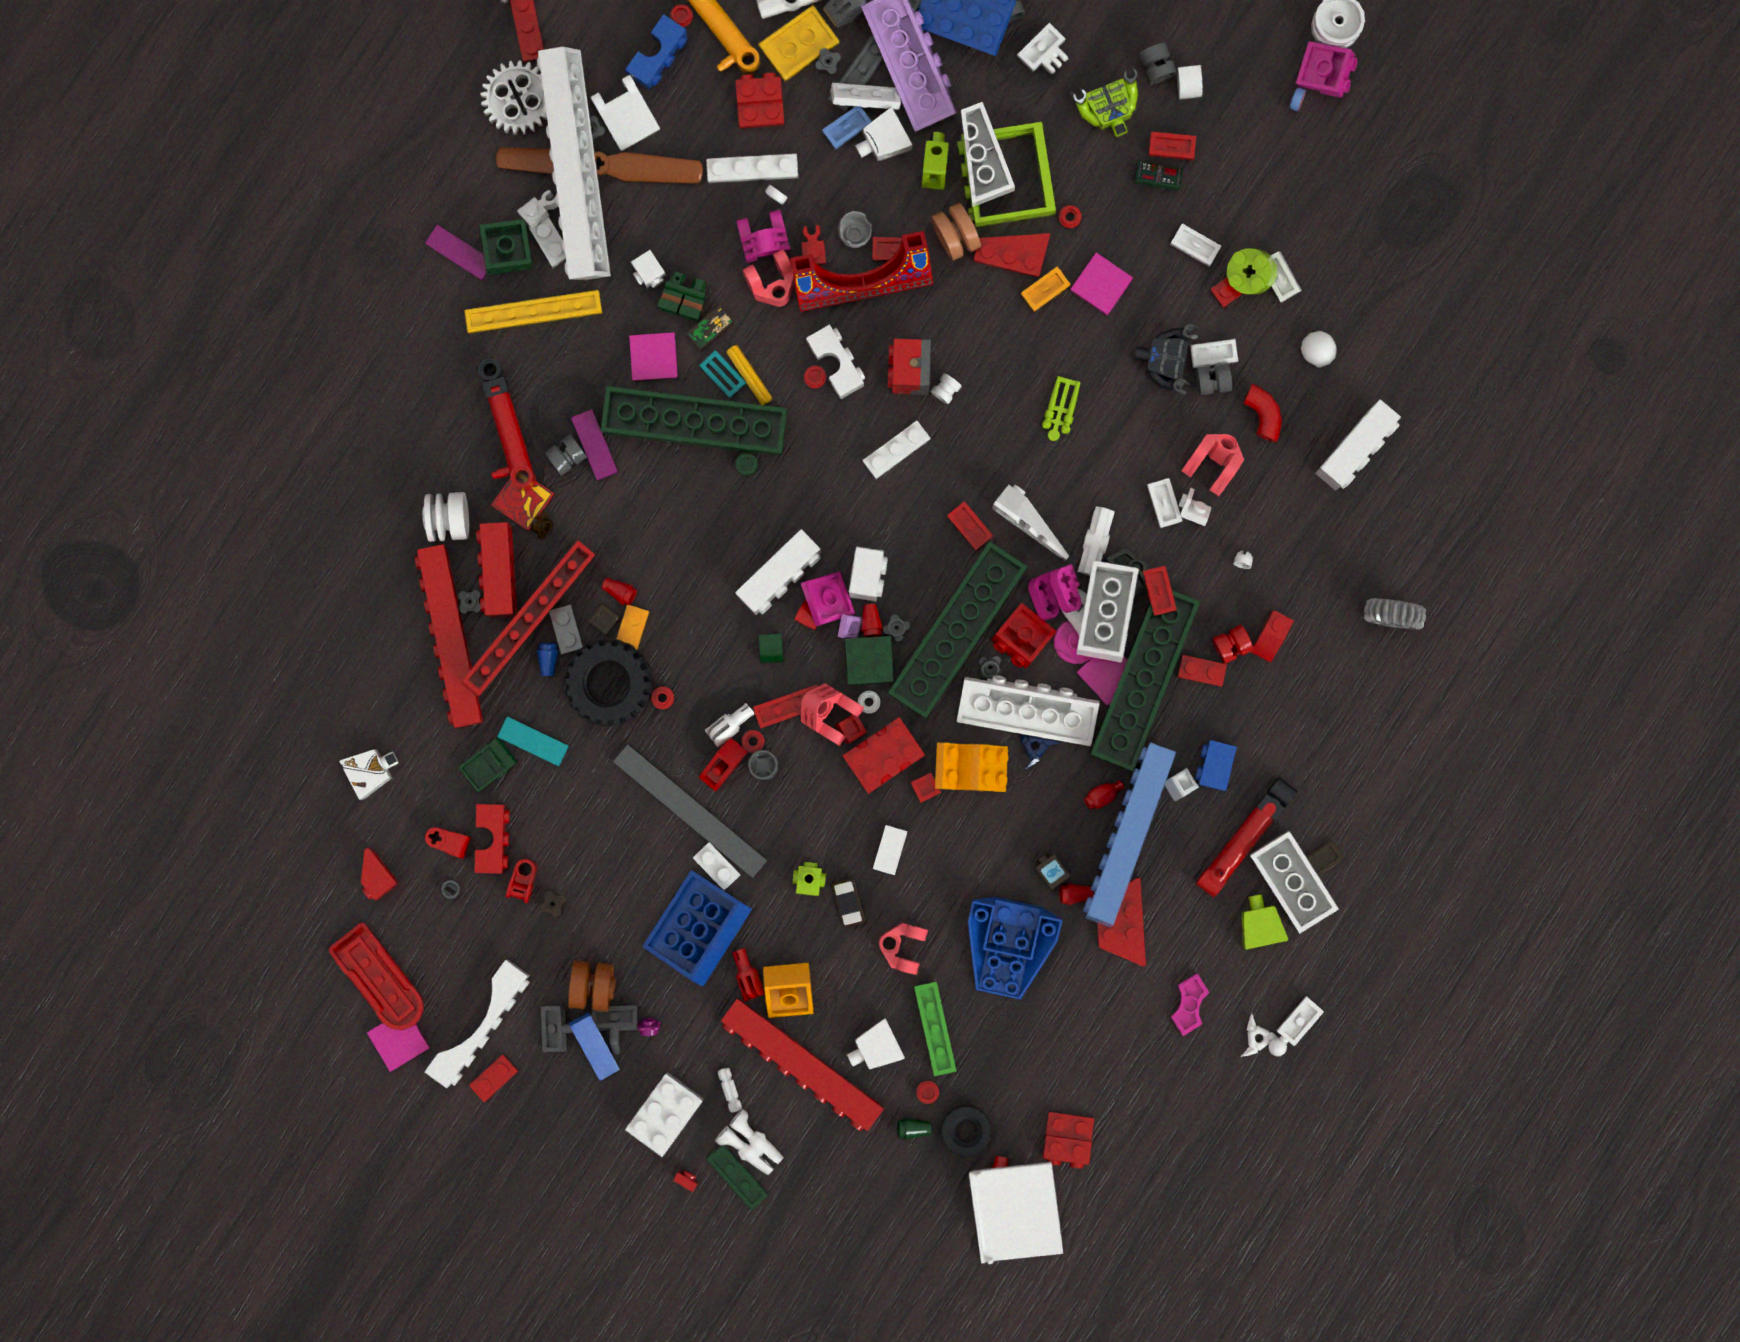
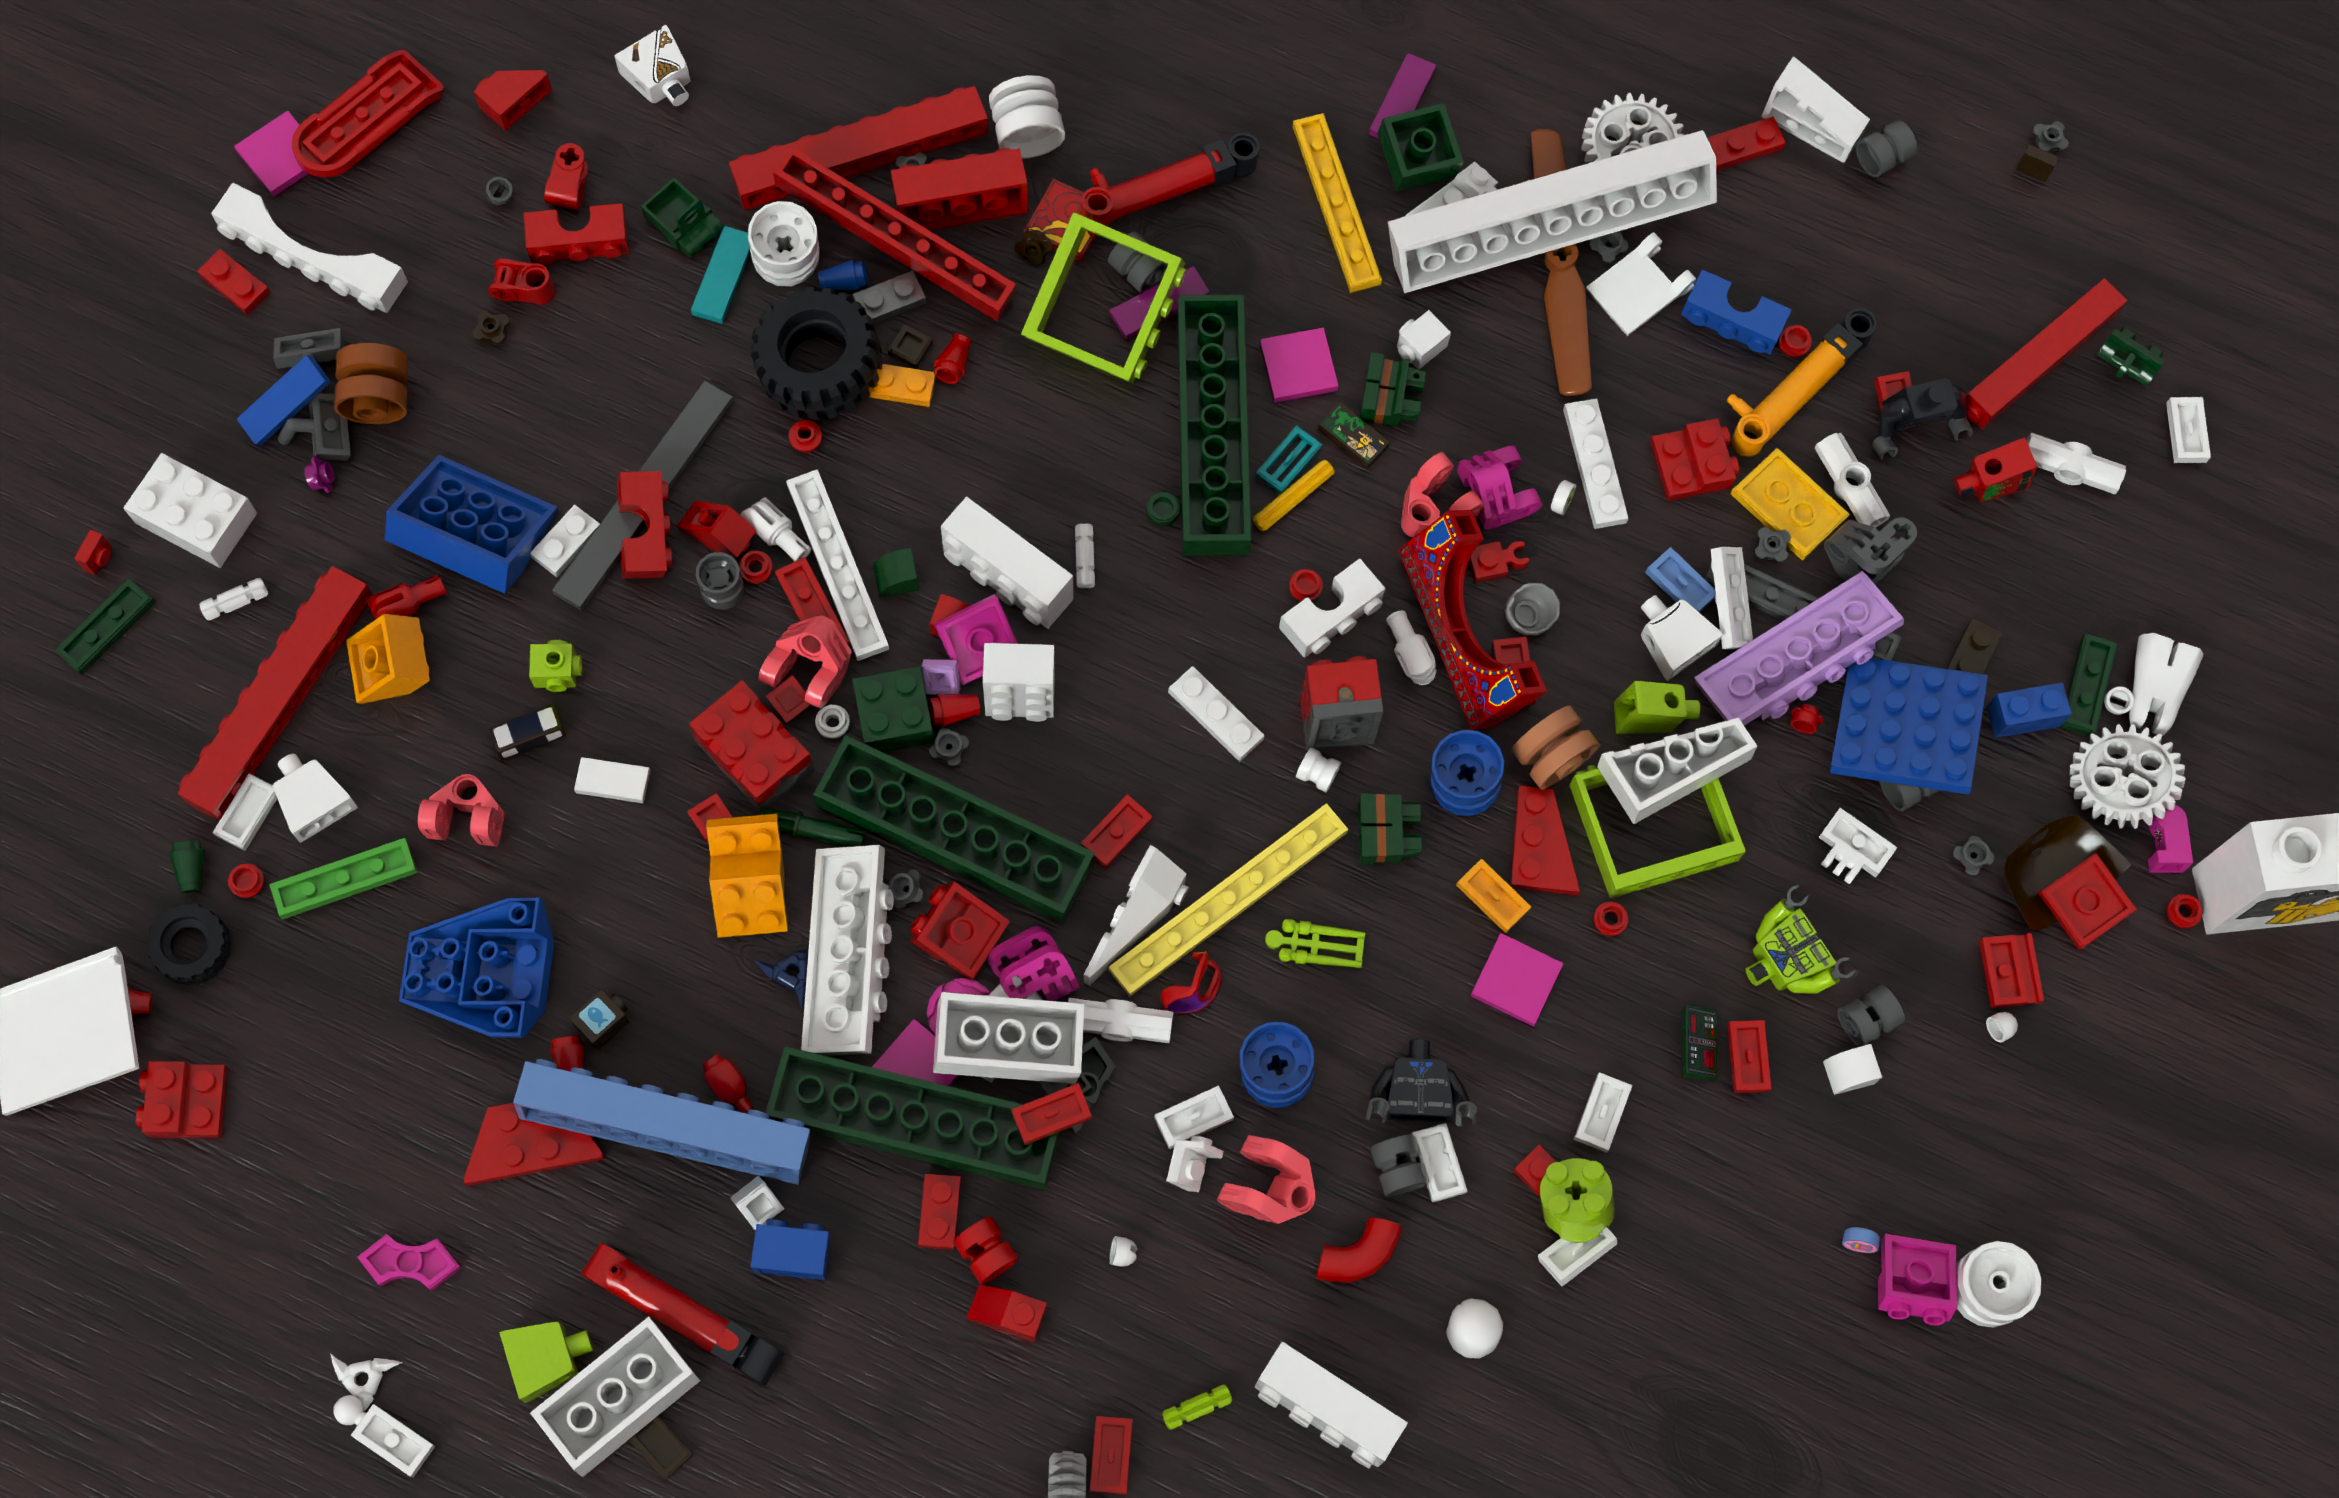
camera: 75 degrees right, 15 degrees down
(522, 682) = (784, 227): none -> white wheel
(560, 459) = (1056, 277): none -> lime window
(736, 810) = (644, 495): none -> red arch
(757, 1147) = (144, 648): white piece -> none
(759, 686) = (837, 565): none -> white plate
(775, 521) = (1084, 556): none -> white axle
(871, 314) = (1412, 650): none -> white arm
(880, 1089) = (246, 812): none -> white tile
(941, 721) = (818, 829): none -> dark green axle
(952, 63) = (1806, 718): none -> red plate
(970, 280) = (1475, 757): none -> blue wheel
(983, 347) = (1381, 828): none -> dark green hips
(1025, 460) = (1227, 900): none -> light yellow plate
(1088, 502) = (1187, 999): none -> red piece
(1149, 434) = (1283, 1045): none -> blue wheel
(1344, 527) = (1197, 1407): none -> lime axle
(1367, 583) = (1111, 1455): none -> red plate

